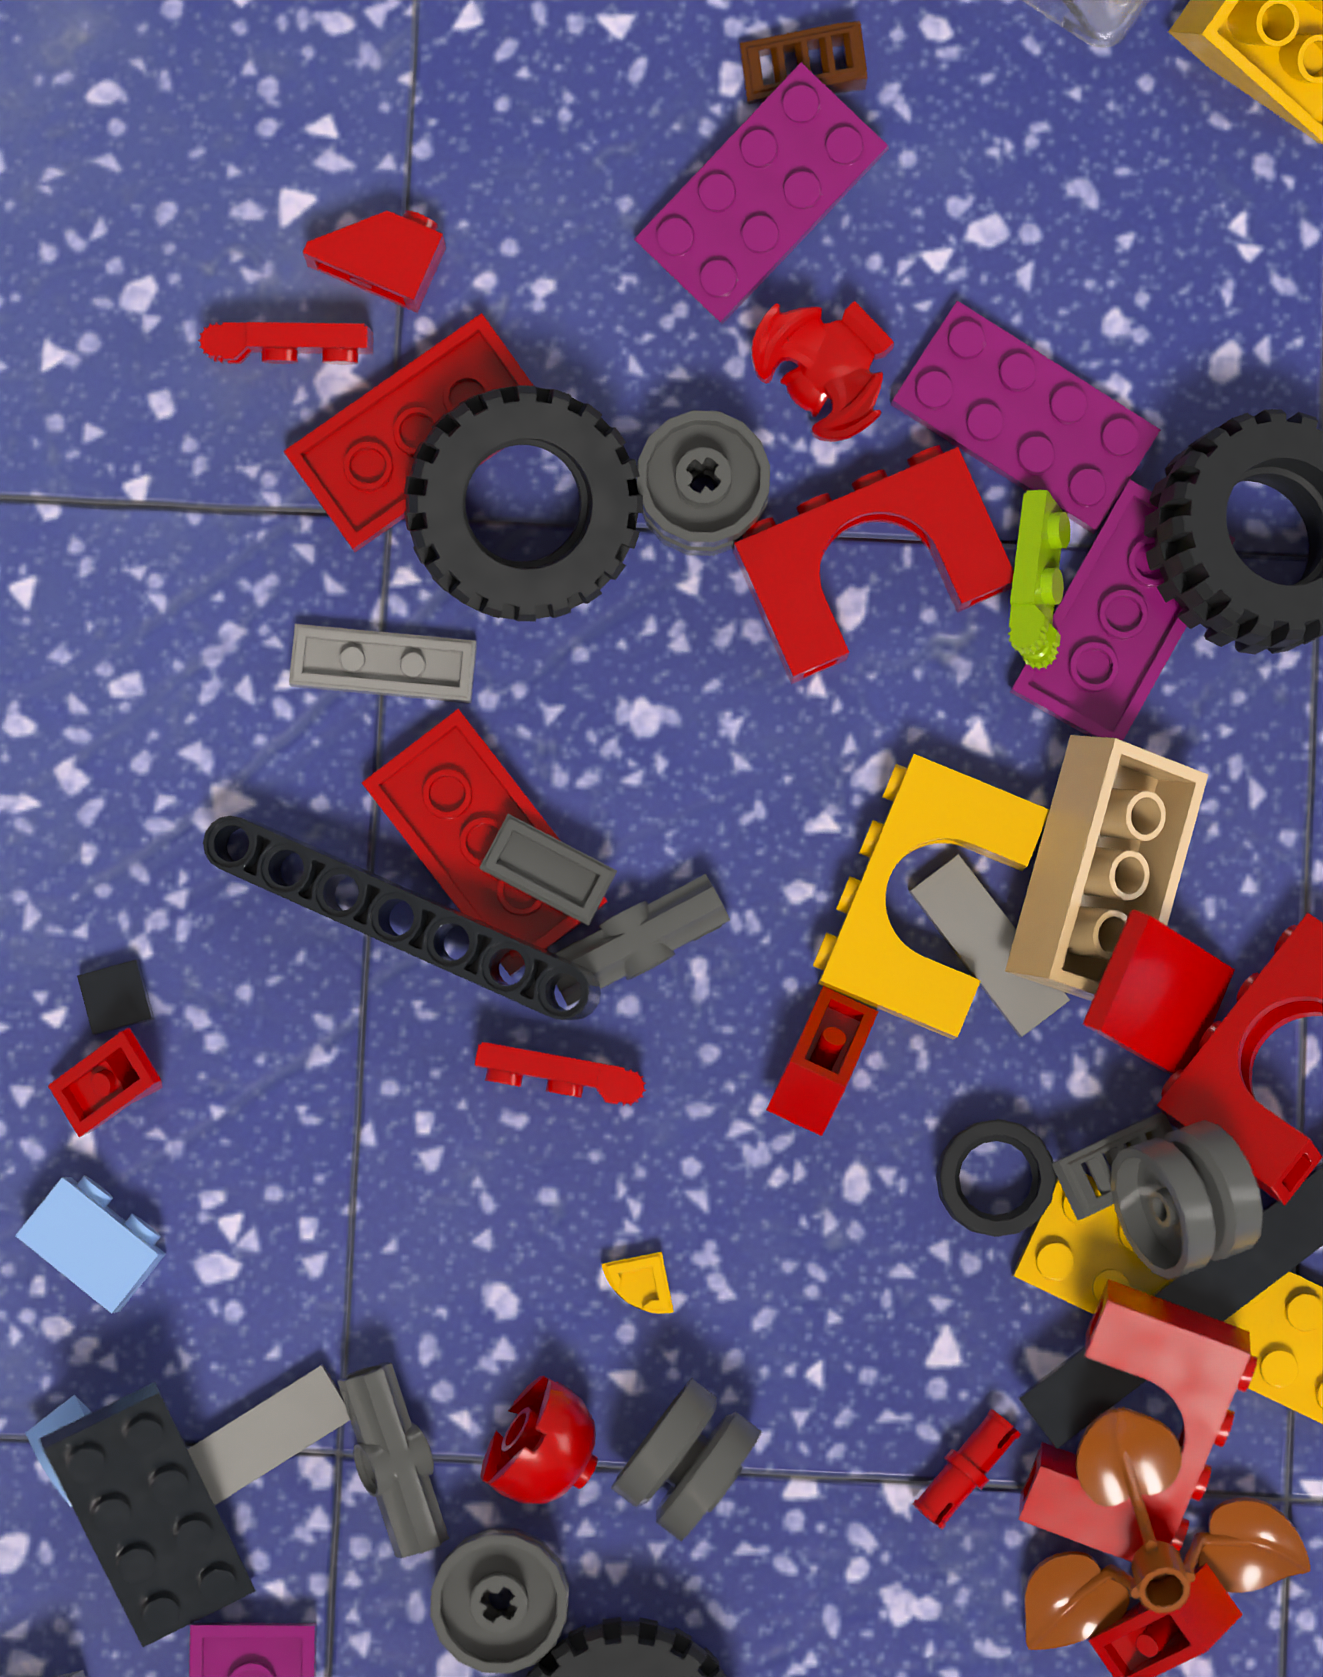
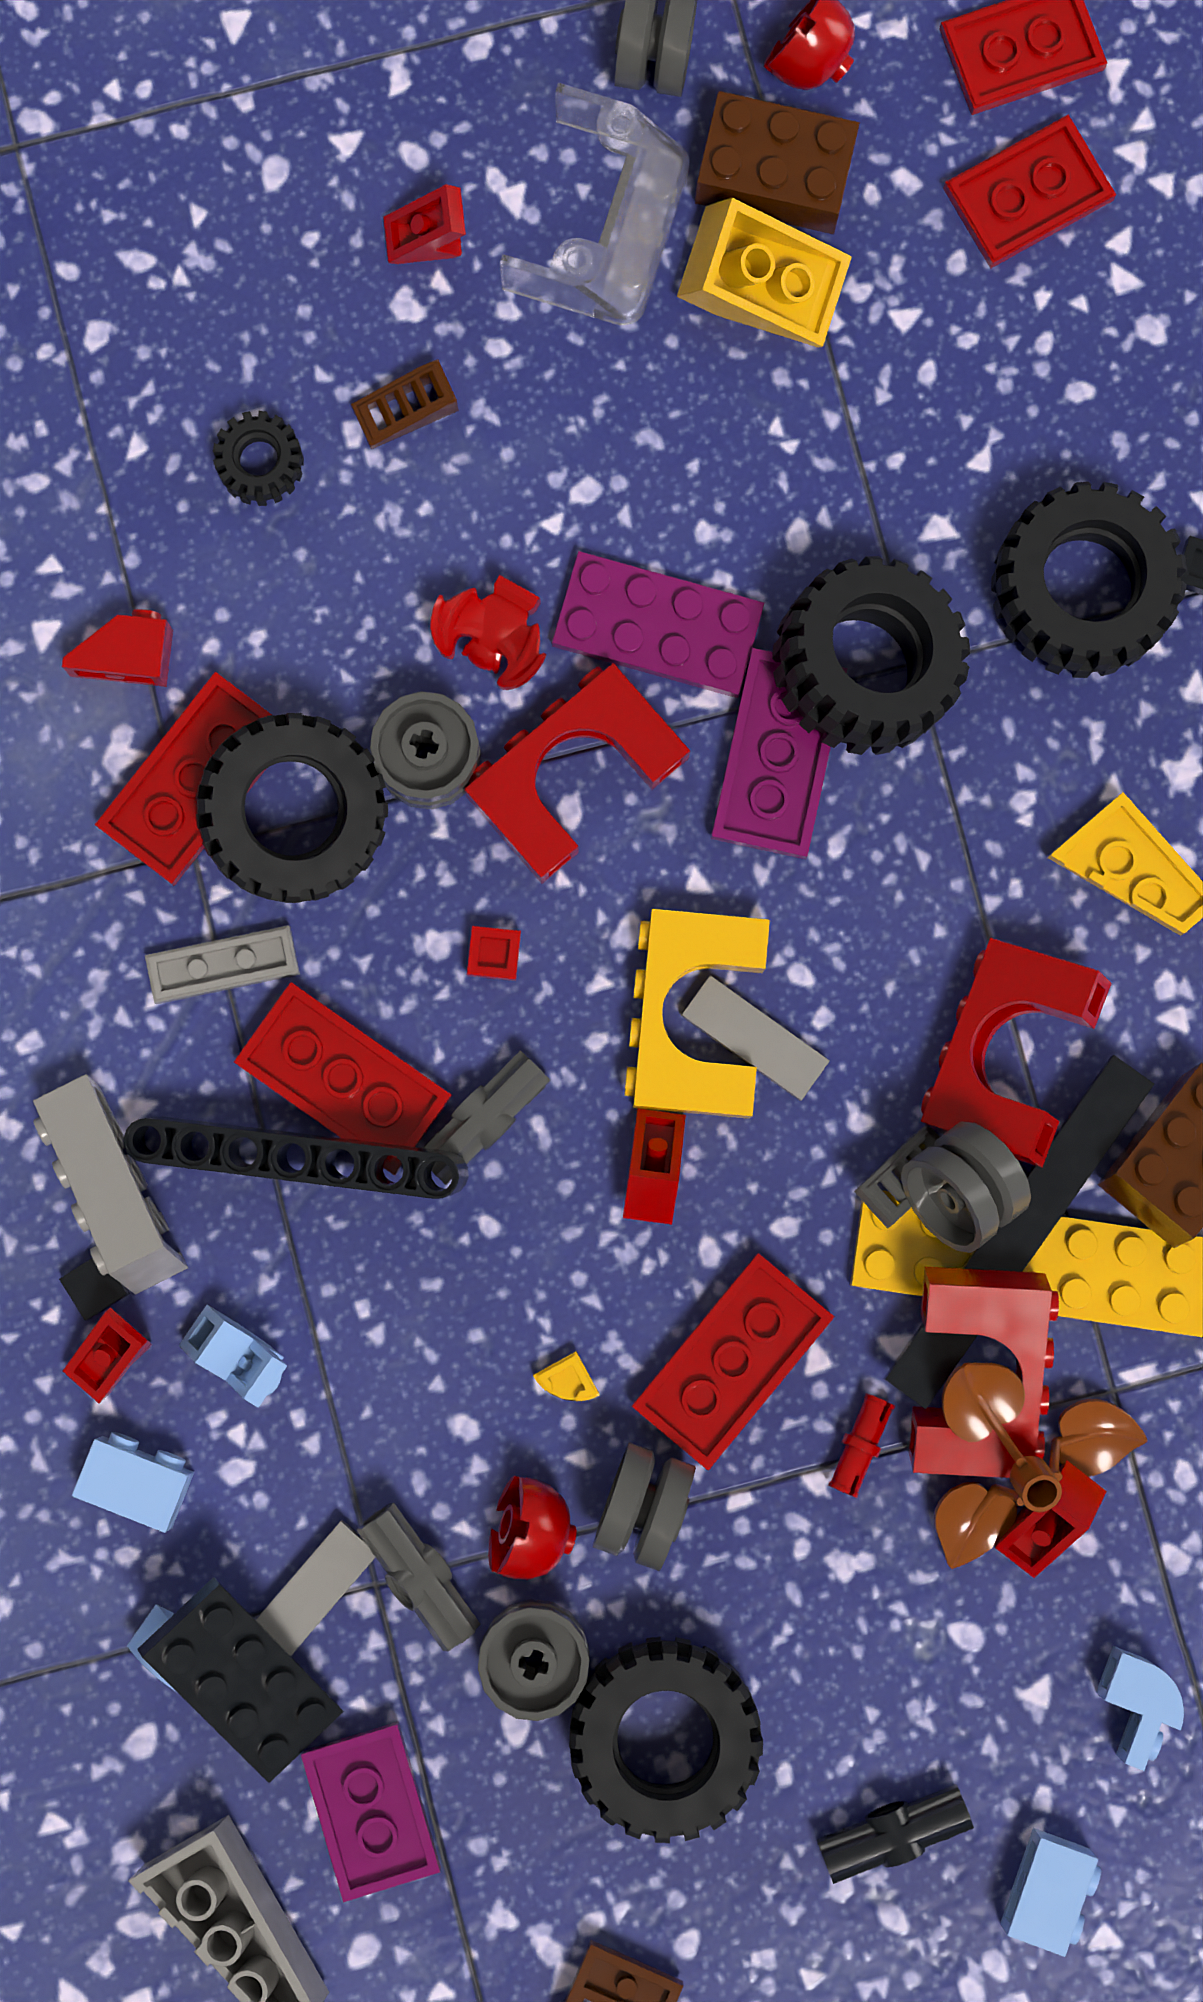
camera: 20 degrees left, 0 degrees up
(166, 883) = (106, 1186): none -> light grey wedge
(256, 1129) = (234, 1355): none -> light blue brick
(283, 341) = (68, 740): red hinge -> none
(548, 870) = (398, 1084): dark grey tile -> none
(563, 1074) = (459, 1238): red hinge -> none
(604, 39) = (251, 430): none -> black tyre
(709, 749) = (494, 953): none -> red plate
(761, 193) = (403, 514): magenta plate -> none
(844, 1321) = (732, 1361): none -> red plate
(1037, 578) = (705, 745): lime hinge -> none
(1041, 1169) = (851, 1206): black tyre -> none
(1106, 849) = (827, 954): tan brick -> none
(1158, 994) = (895, 1035): red tile -> none

